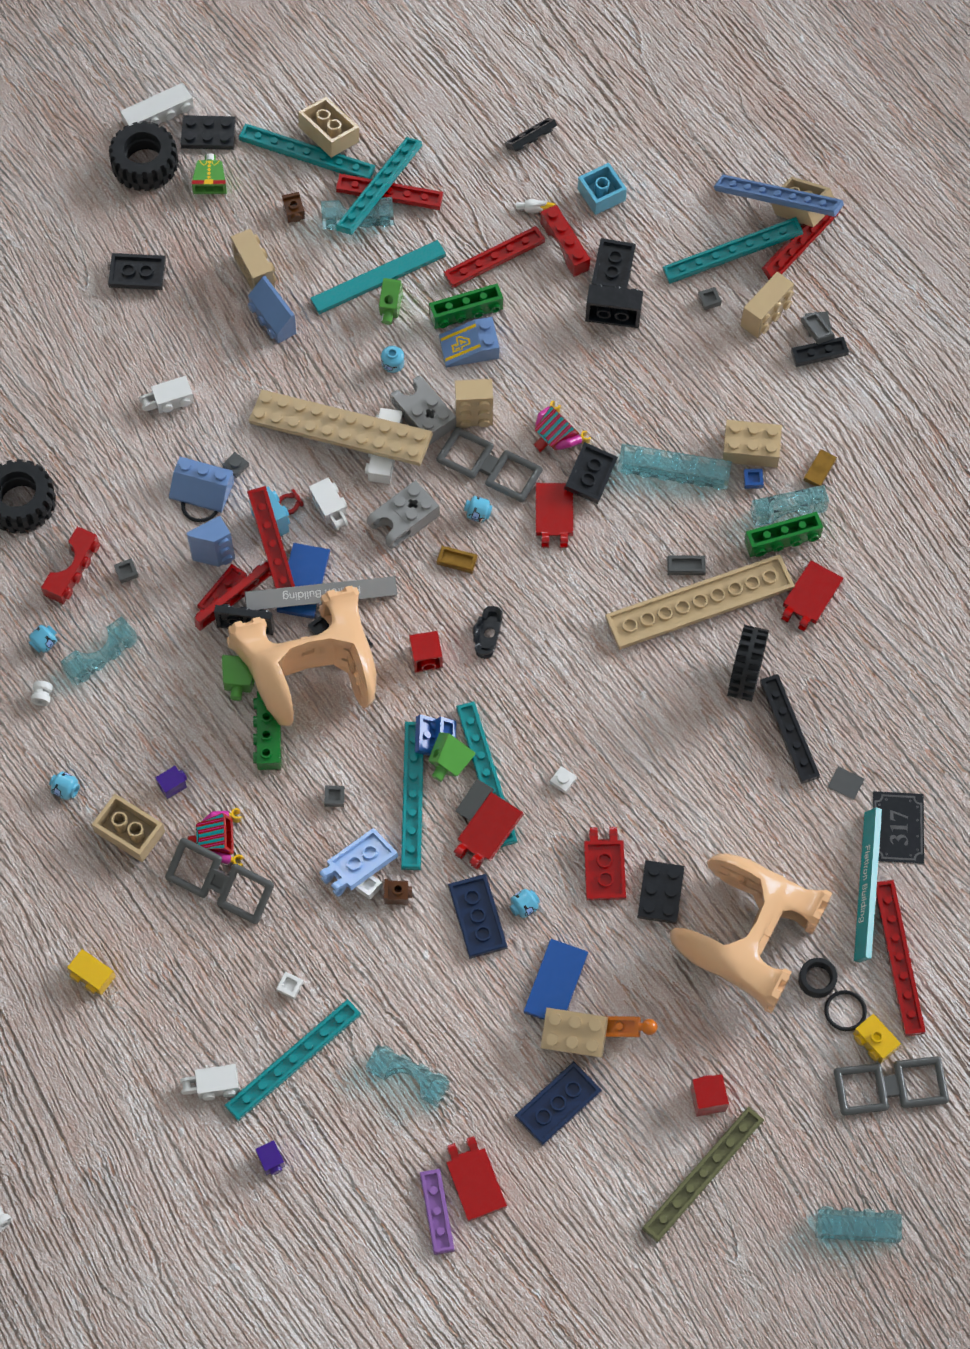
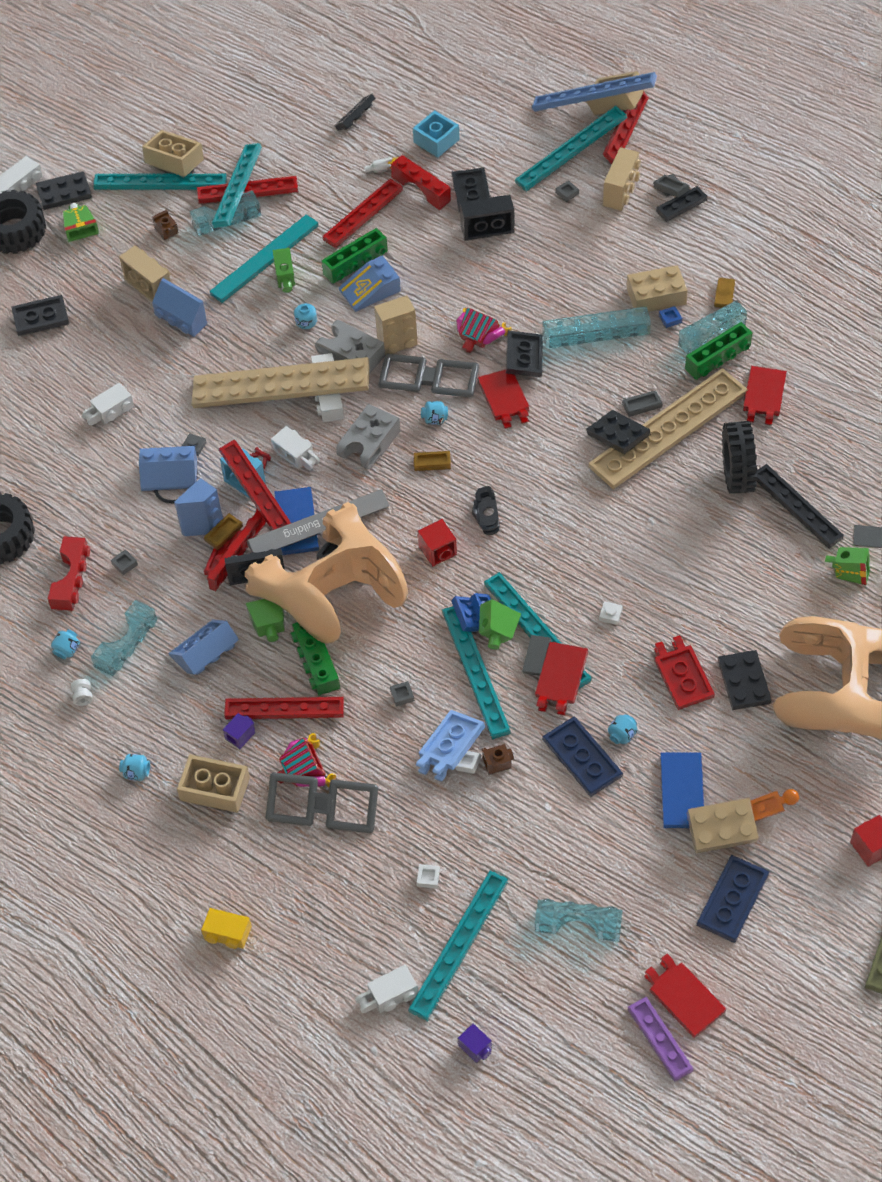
camera: 15 degrees left, 10 degrees down
(169, 685) = (204, 646): none -> medium blue slope
(221, 773) = (285, 707): none -> red plate
(229, 570) = (223, 531): none -> pearl gold tile
(647, 590) = (618, 431): none -> black plate
(812, 810) = (851, 564): none -> bright green torso

